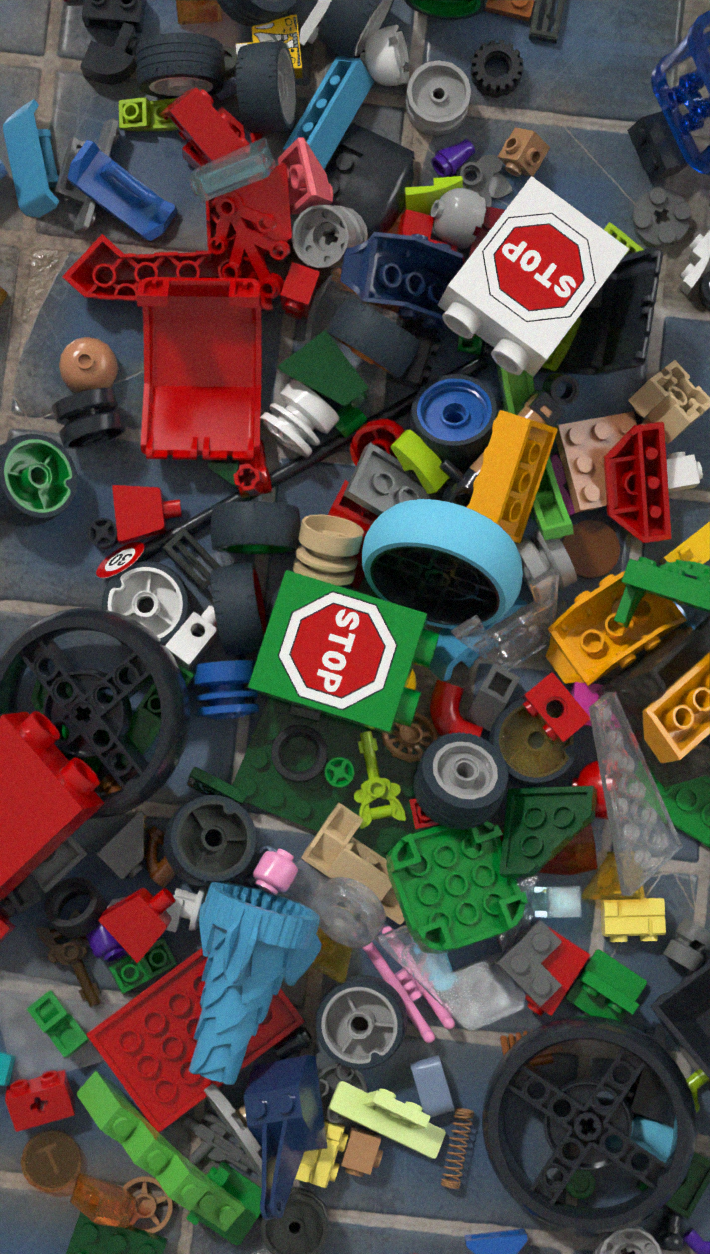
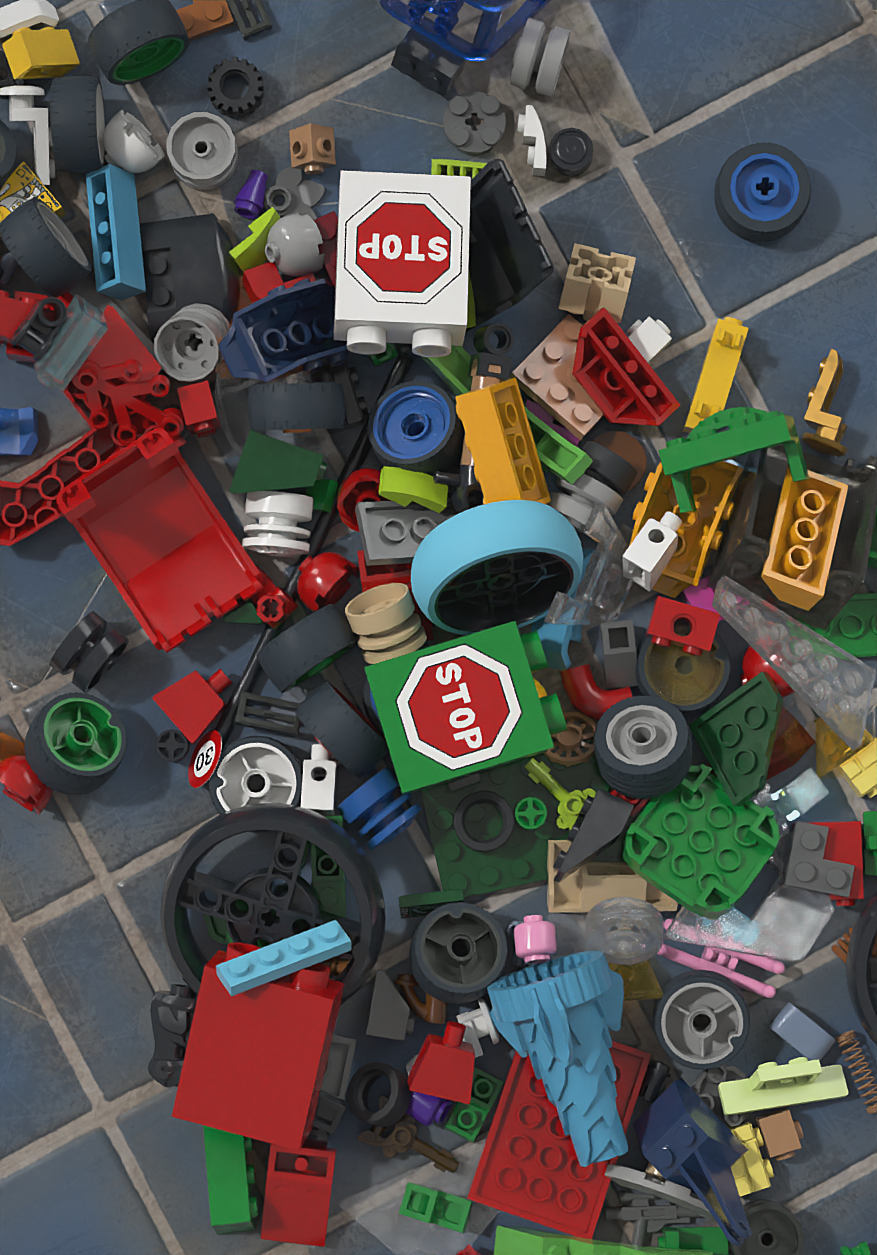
camera: 30 degrees left, 0 degrees up
(67, 750) = (283, 957): none -> medium azure plate
(88, 365) = (54, 605): nougat cylinder -> none
(213, 143) = (35, 331): none -> black piece
(306, 178) = (136, 304): coral slope -> none
(306, 486) = (324, 579): none -> red cylinder
(380, 822) = (599, 829): none -> black slope
(571, 634) = (651, 550): none -> white torso
(582, 548) = (609, 468): none -> black tyre

